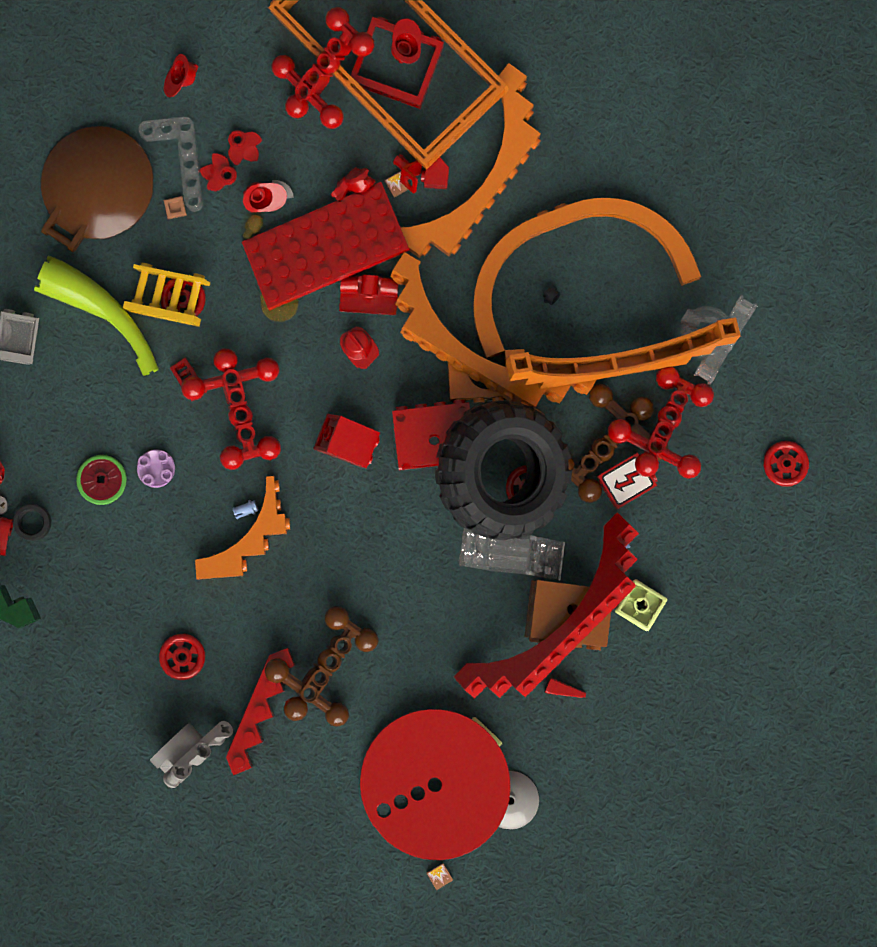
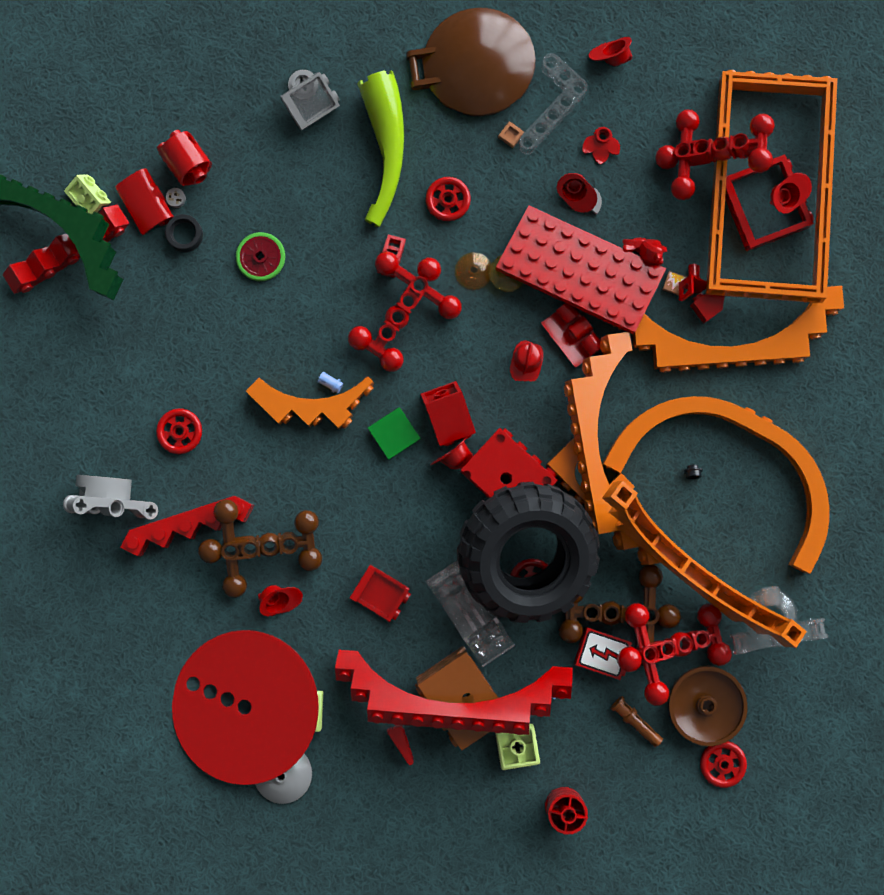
camera: 50 degrees right, 0 degrees up
(155, 468) = (303, 289): lavender dish -> none
(171, 312) = (421, 184): yellow fence -> none
(215, 173) = (563, 141): red plate -> none
(253, 226) = (548, 203): clear yellow cylinder -> none
(258, 336) = (469, 279): none -> clear orange dish
(326, 494) = (394, 433): none -> green tile
(377, 690) = (279, 600): none -> red piece
(386, 462) = (456, 457): none -> red piece
(439, 609) = (380, 593): none -> red panel
(439, 876) = (178, 770): tile -> none
(690, 501) = (630, 716): none -> dark orange pin
(718, 608) = (566, 810): none -> red cylinder
(732, 437) = (707, 706): none -> reddish brown dish

